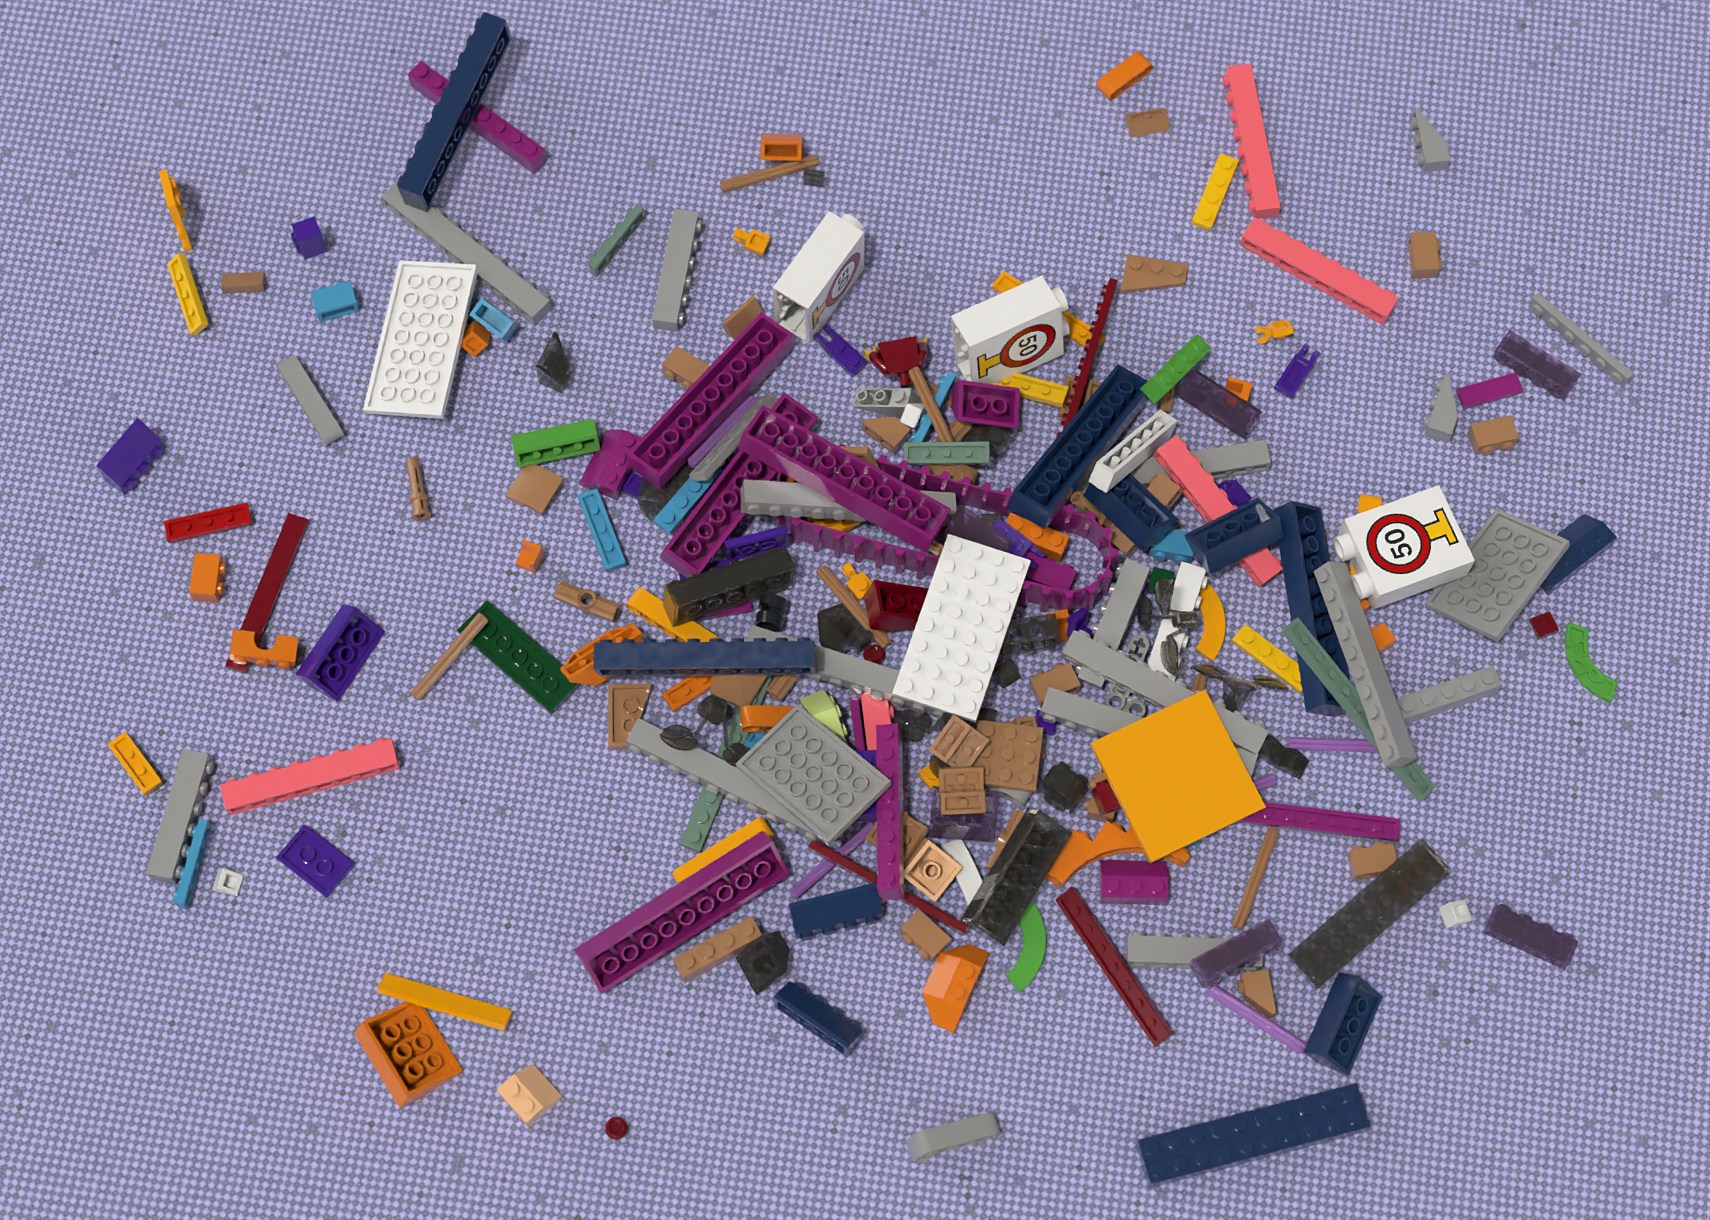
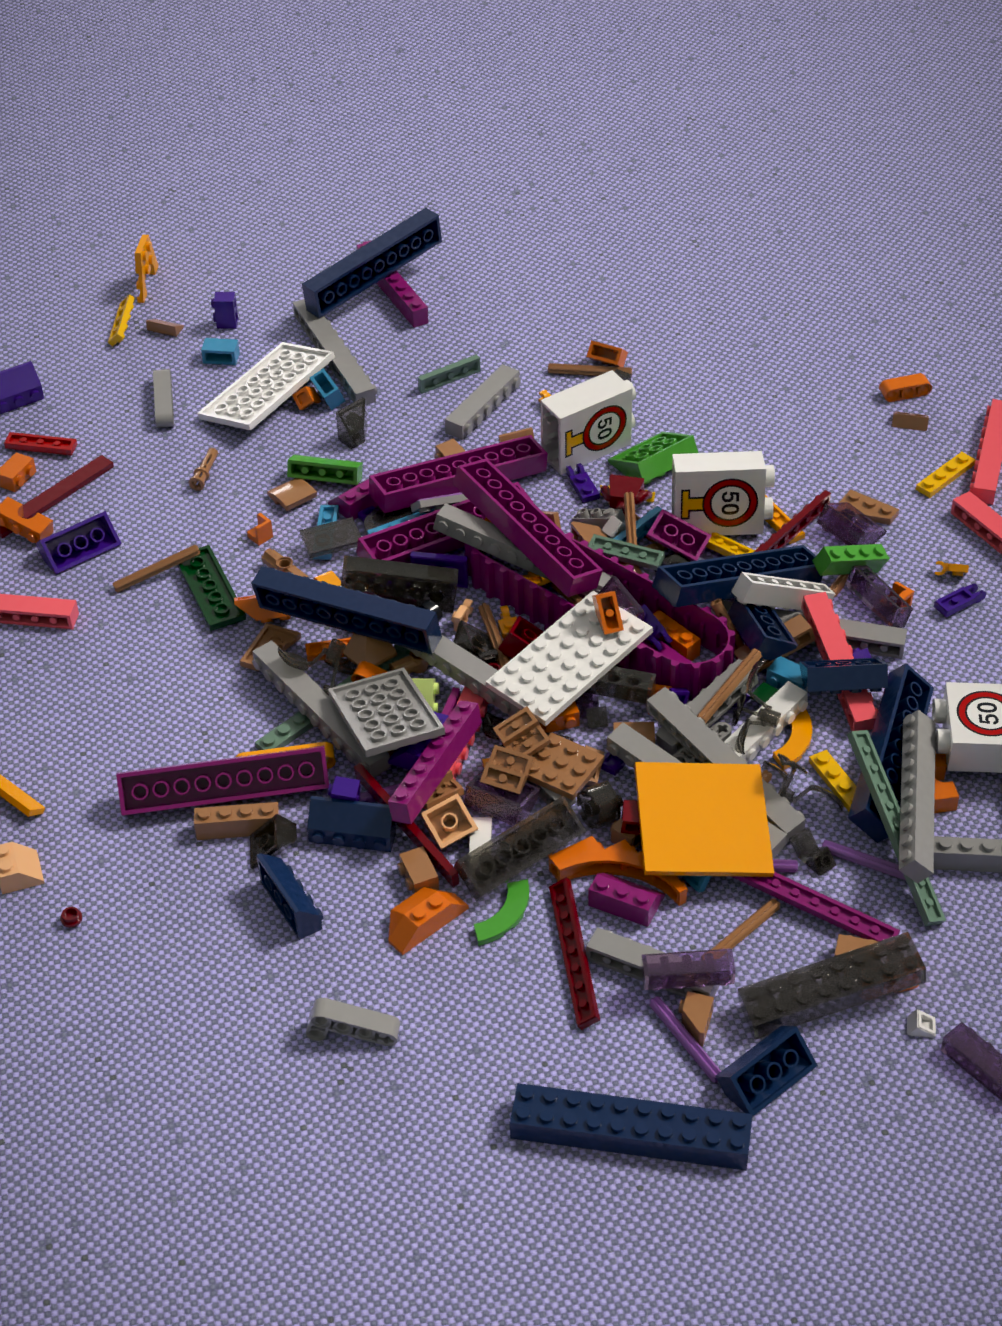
camera: 25 degrees right, 25 degrees down
(616, 541) = (330, 537): none -> clear smoke tile
(805, 596) = (462, 613): none -> light nougat plate
(816, 884) = (345, 789): none -> dark purple brick
(900, 283) = (653, 455): none -> bright green slope
(982, 564) = (608, 612): none -> orange slope
(1132, 598) = (729, 685): none -> medium nougat axle
(1151, 311) = (849, 524): none -> clear purple slope

